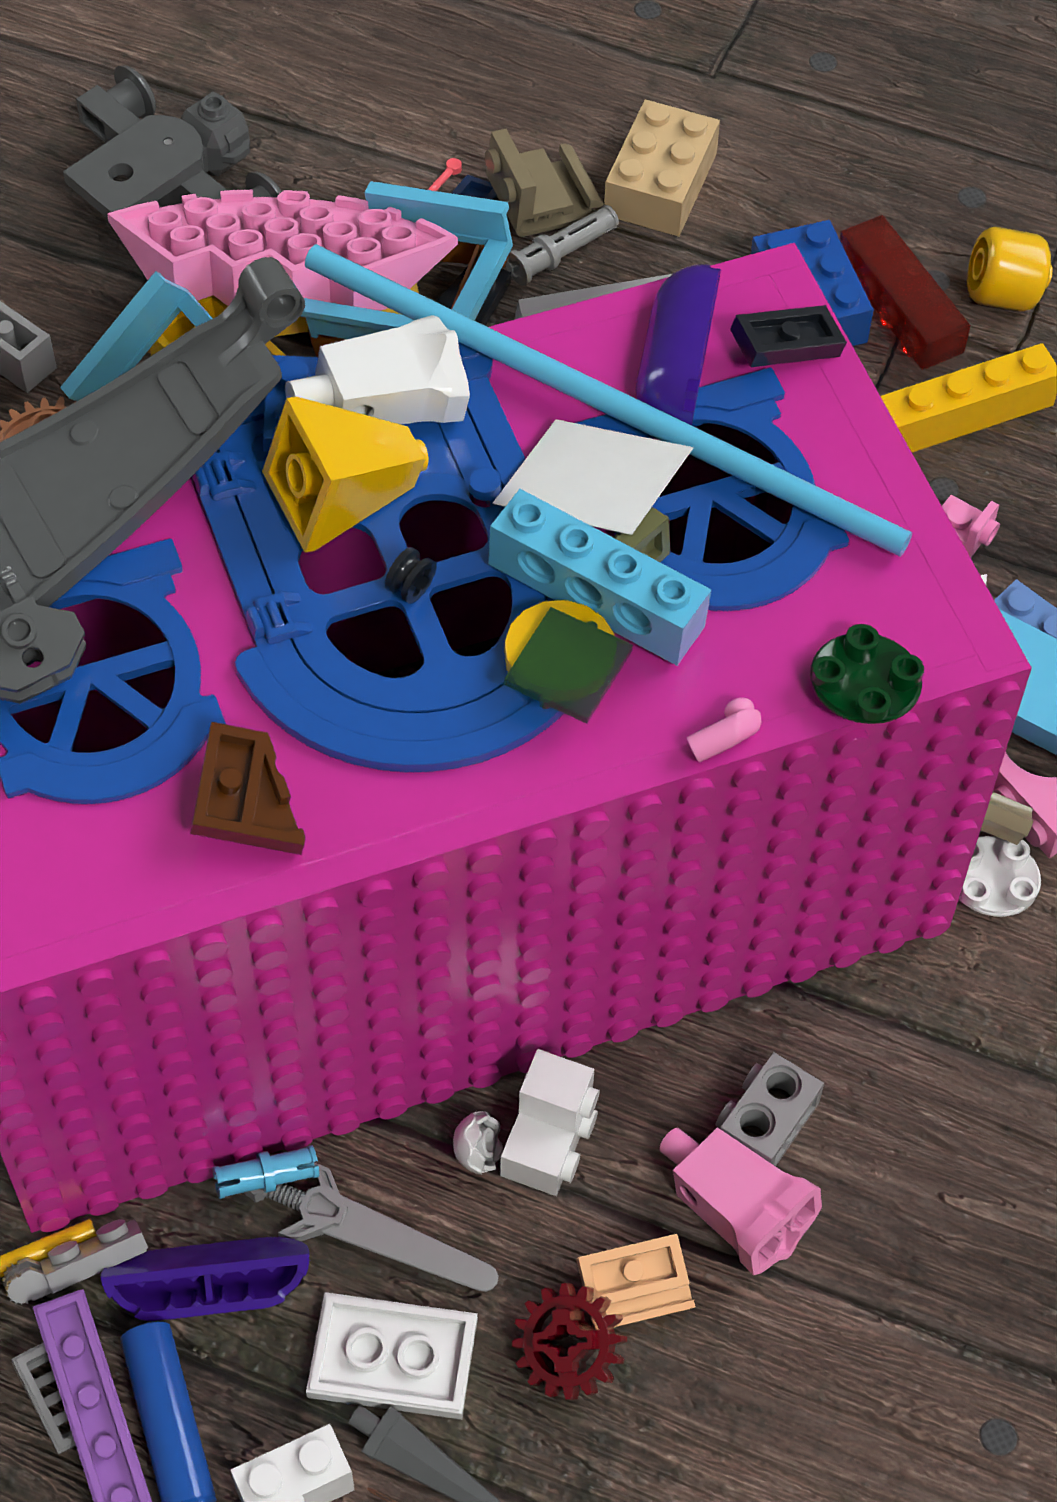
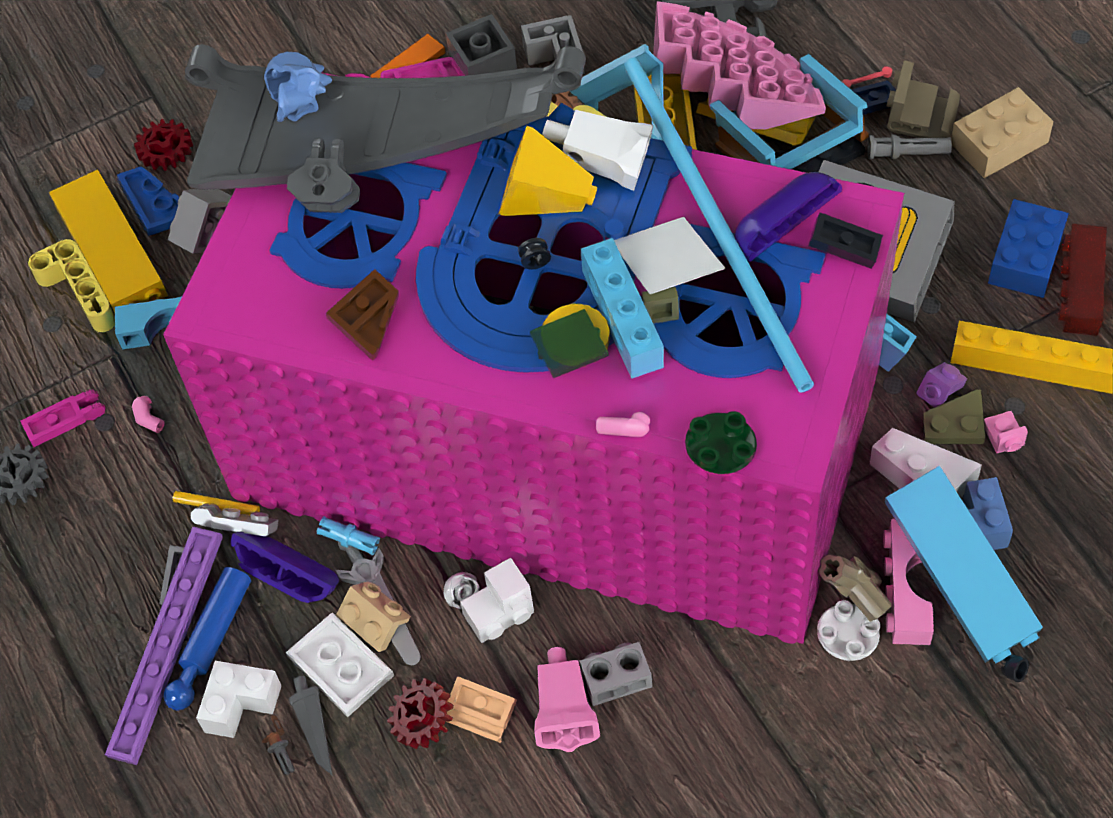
camera: 45 degrees right, 0 degrees up
(386, 1257) = (371, 614): none -> tan bracket

